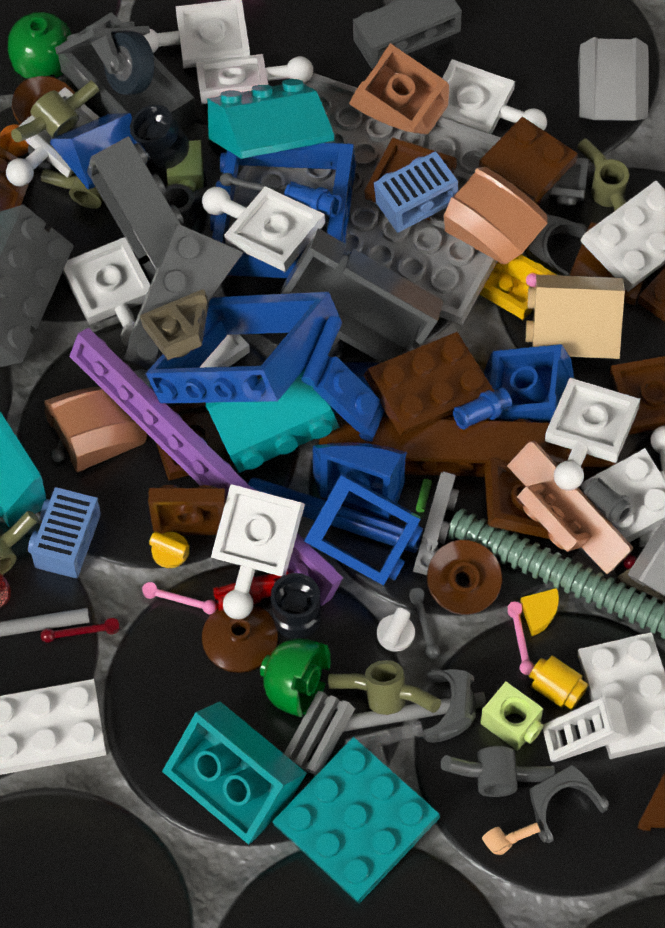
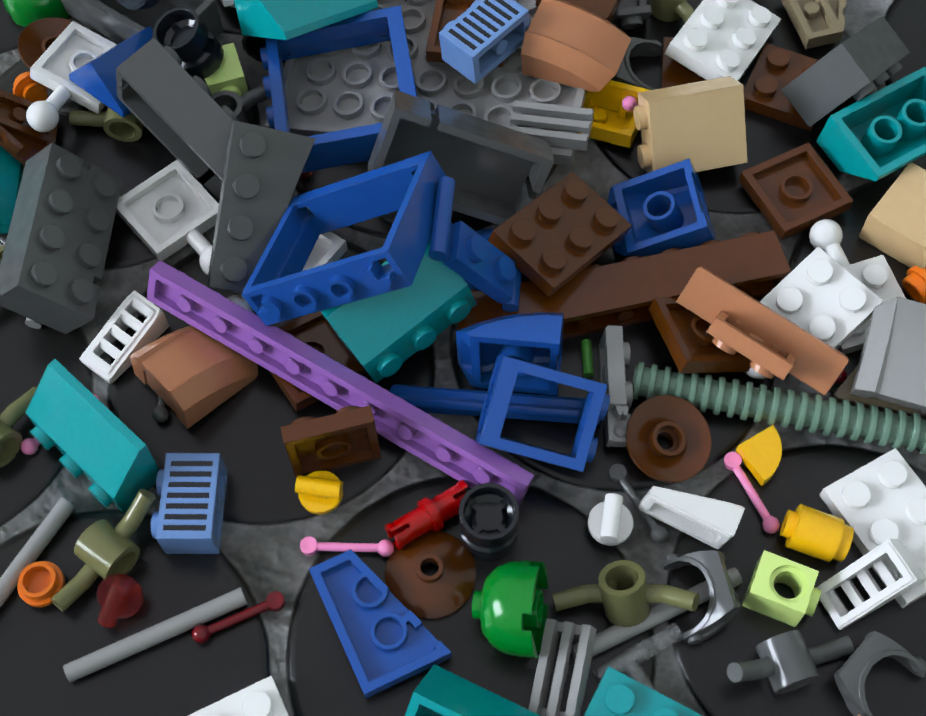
camera: 15 degrees left, 0 degrees up
(47, 366) = (123, 318): none -> white slope
(55, 113) = (66, 45): olive piece -> none
(178, 325) = (263, 232): dark tan wing -> none
(182, 663) = (374, 627): none -> blue wing
(227, 179) = (339, 69): dark grey hinge -> none
(258, 535) = (423, 451): white plate -> none
(269, 228) = (335, 107): white plate -> none
(318, 199) = (382, 67): blue pin -> none
(455, 280) = (552, 119): none -> light grey tile
(464, 643) = (698, 516): none -> white slope
(488, 405) = (632, 242): blue pin -> none
(589, 423) = (756, 234): white plate -> none
(613, 504) = (805, 311): dark grey pin -> none

